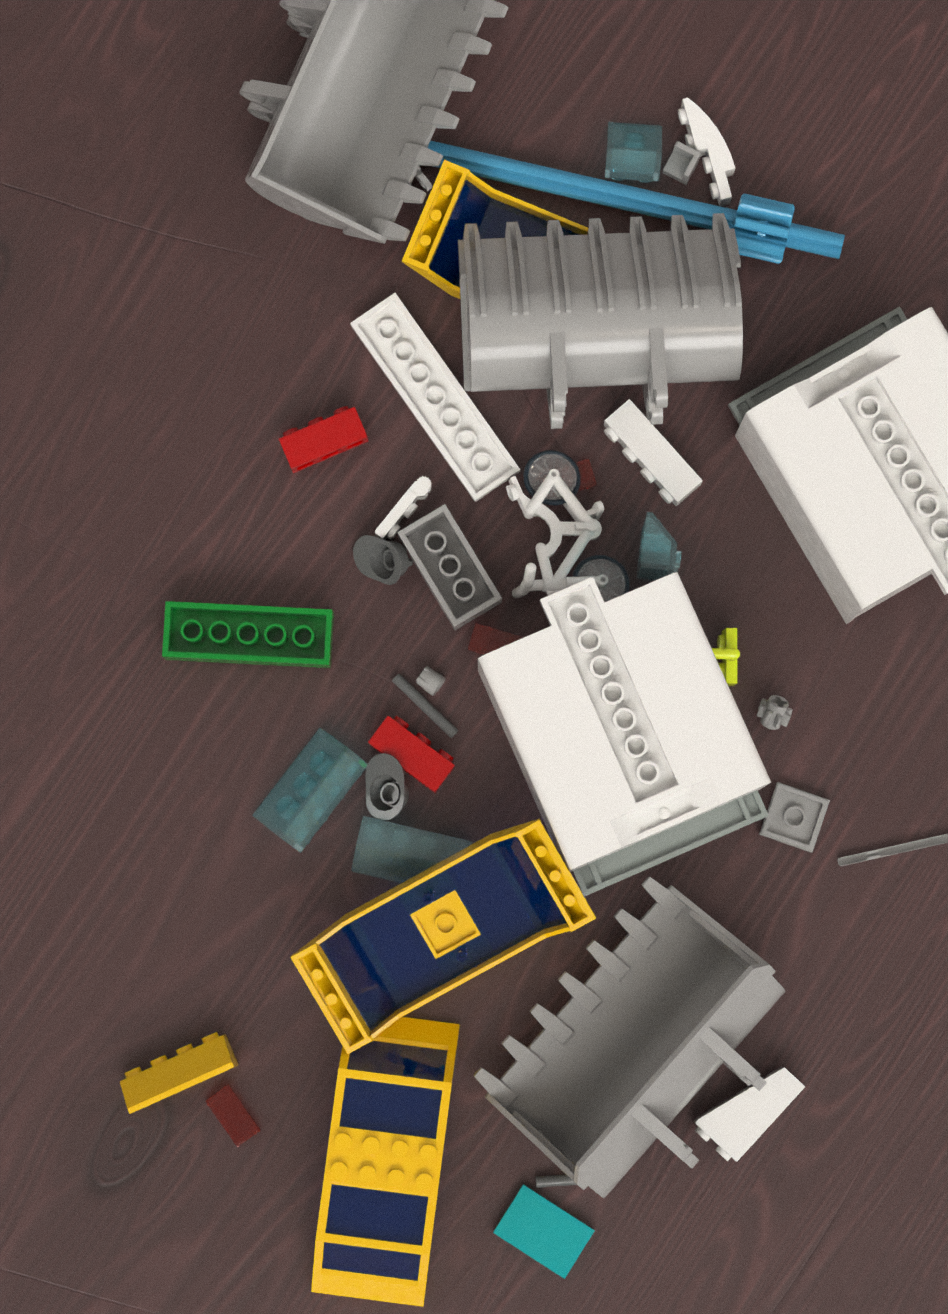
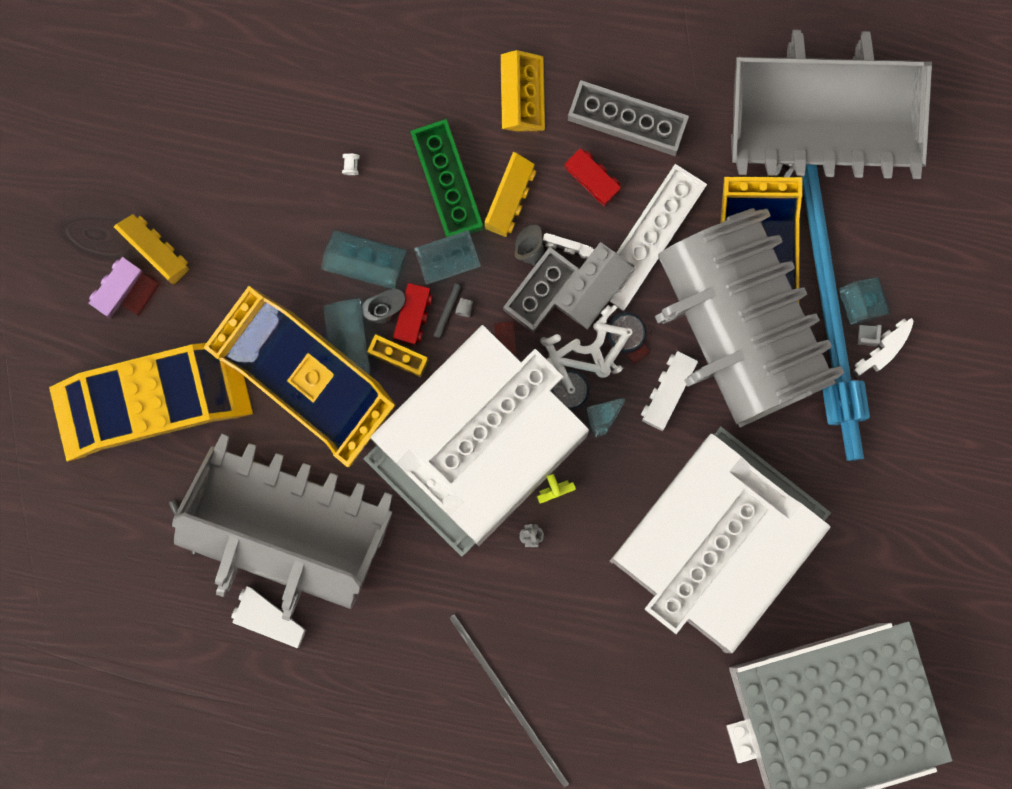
camera: 70 degrees right, 0 degrees up
(168, 486) = (522, 91): none -> yellow slope
(171, 756) = (350, 164): none -> white bush
(210, 1145) = (115, 287): none -> lavender brick
(263, 359) = (627, 118): none -> light grey brick
(303, 559) = (509, 195): none -> yellow slope
(356, 675) = (447, 257): none -> clear light blue slope
(461, 795) = (397, 355): none -> yellow brick
(473, 495) = (593, 286): none -> light grey slope
(543, 1231) = (142, 518): teal tile -> none
(794, 817) = (469, 575): light grey tile -> none

